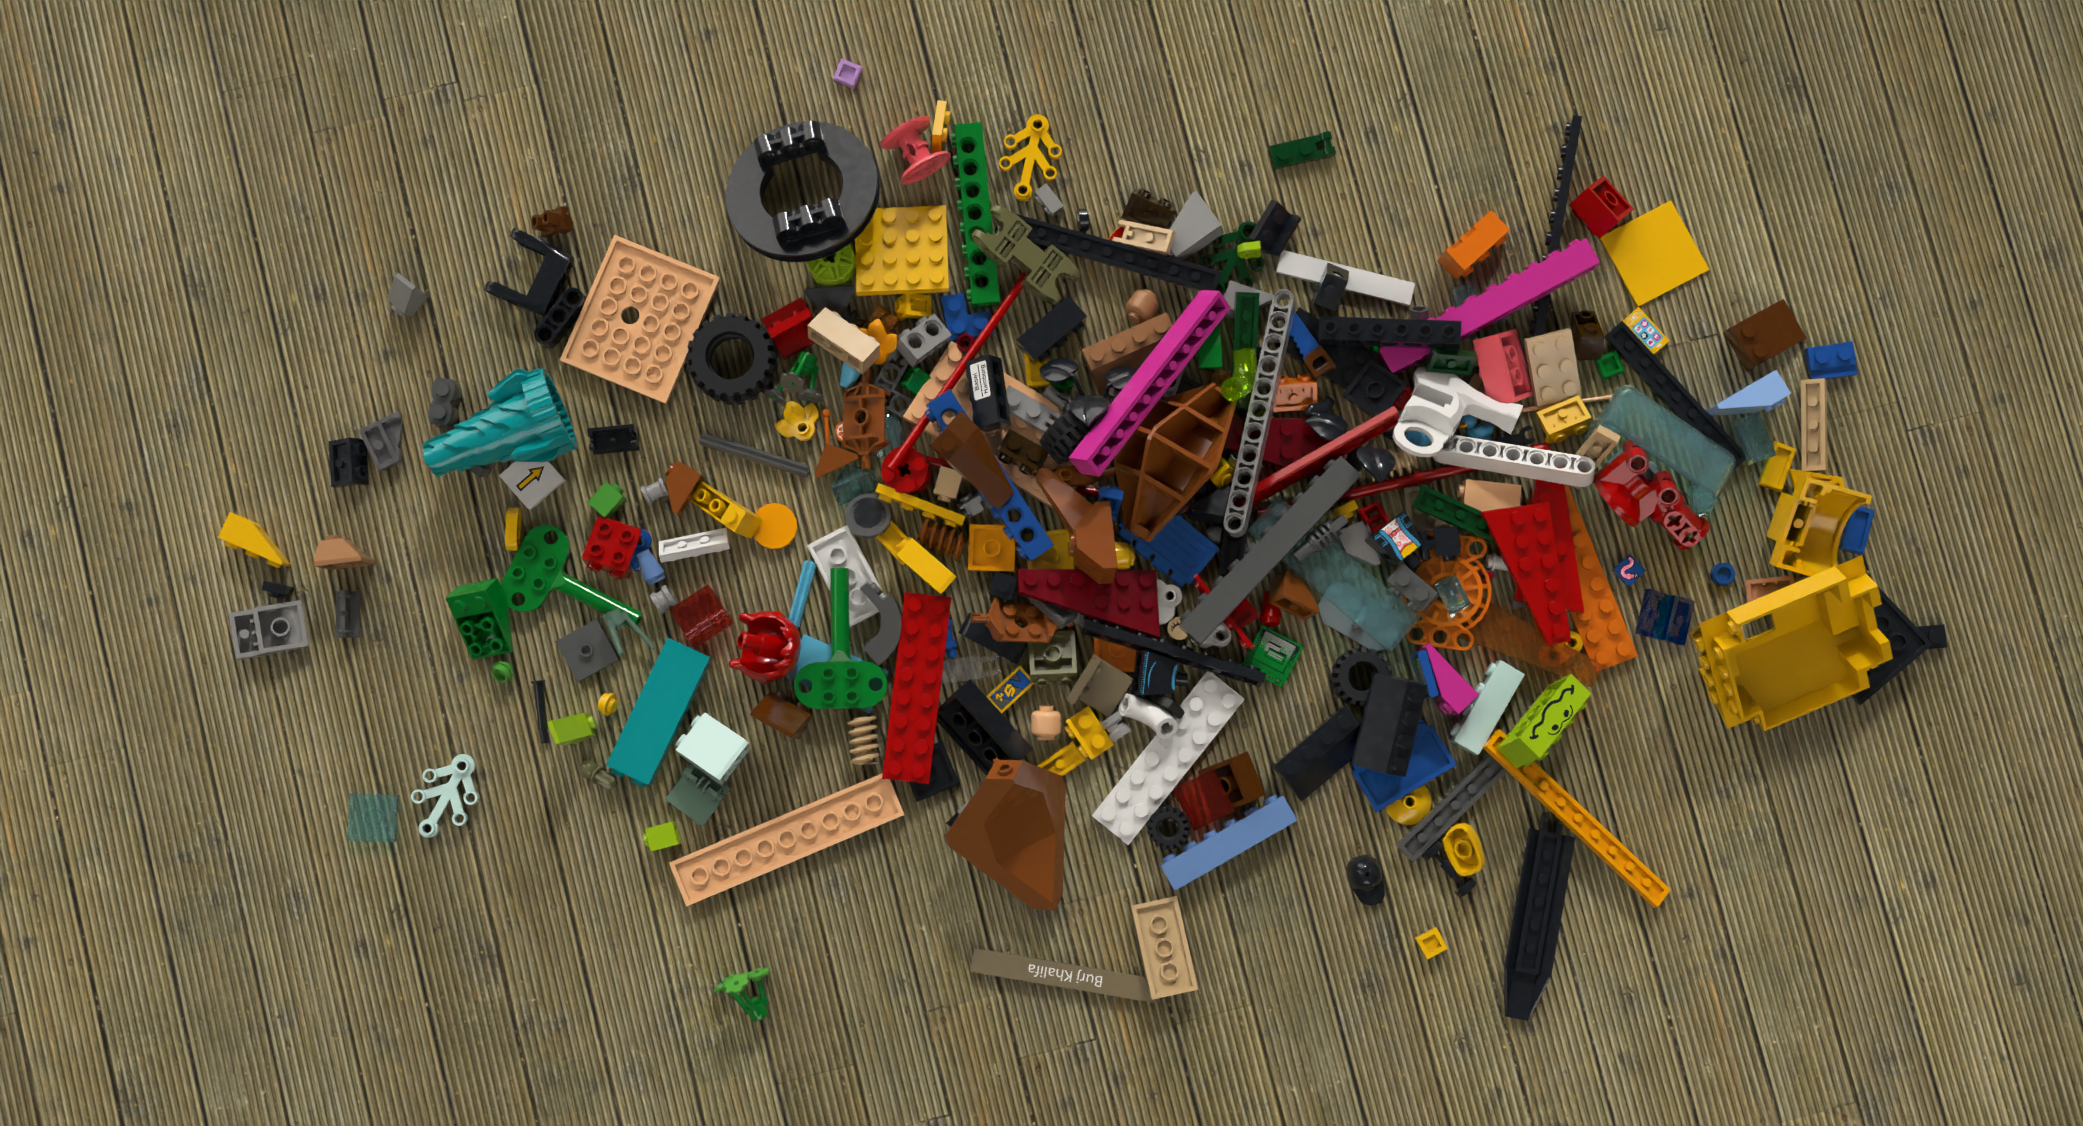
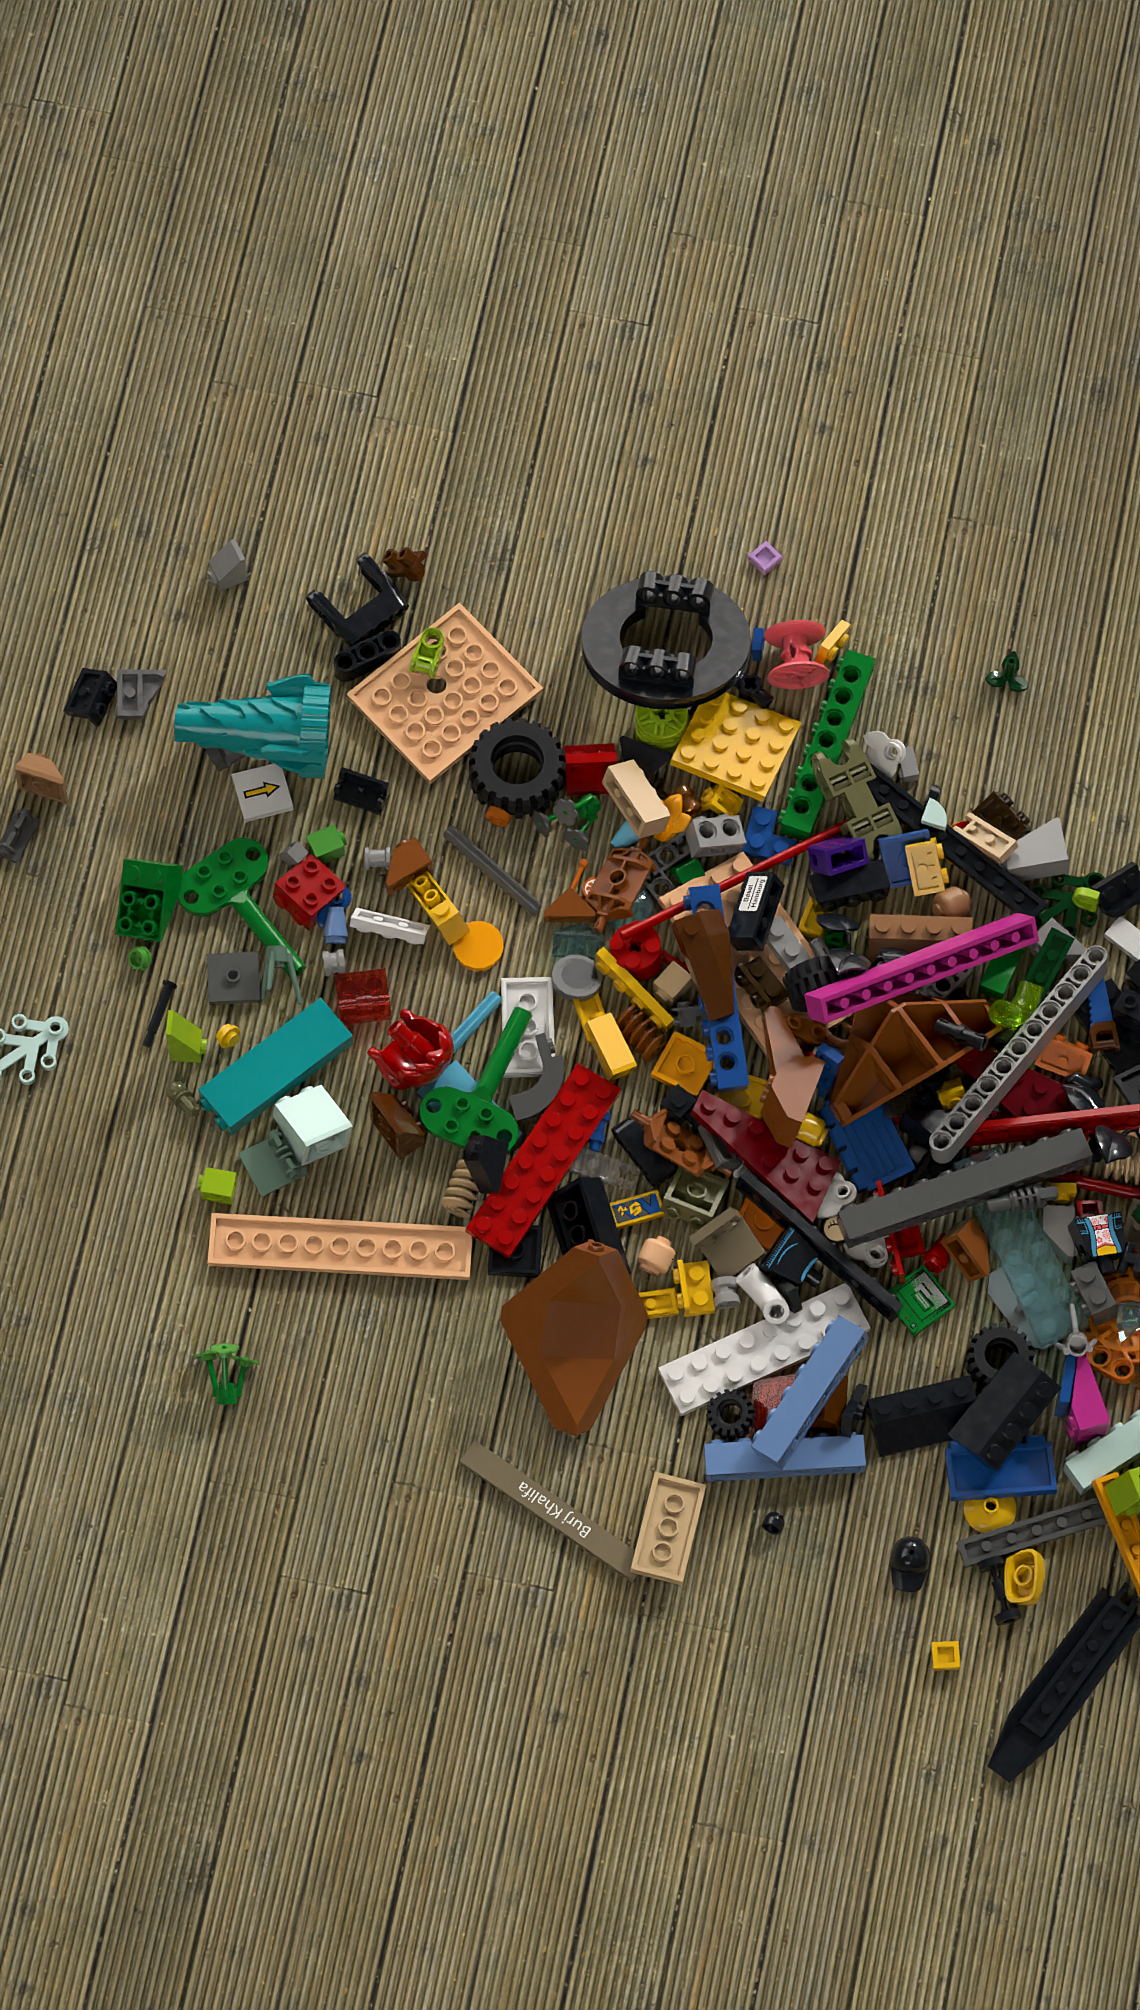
camera: 25 degrees right, 15 degrees down
(446, 398) = (217, 680): dark grey brick -> none
(513, 528) = (220, 829): yellow beam -> none
(584, 521) = (293, 853): none -> light grey piece
(610, 299) = (426, 656): none -> lime piece
(736, 407) = (498, 816): none -> orange tile
(796, 418) = (552, 855): yellow plate -> none
(872, 717) = (486, 1162): none -> black slope
(878, 153) = (758, 644): none -> blue tile
(900, 198) = (757, 695): none -> black axle
(961, 342) = (753, 855): dark red hinge -> none
(1024, 203) = (880, 752): none -> white plate
(1031, 153) = (912, 711): yellow plant -> none
(1032, 311) = (829, 859): none -> dark purple torso
(1089, 283) = (894, 855): none -> blue tile
(1093, 73) = (1010, 666): none -> dark green plant
(1094, 237) = (934, 815): none -> light aqua tile
(1108, 286) = (926, 867): none -> yellow bracket
(1212, 429) = (960, 1034): none -> black pin
(1228, 787) = (809, 1392): none -> medium blue brick
(1244, 898) = (773, 1523): none -> black hinge
(1268, 778) = (854, 1410): none -> black plate
(1423, 643) = (1076, 1342): none -> light grey plant

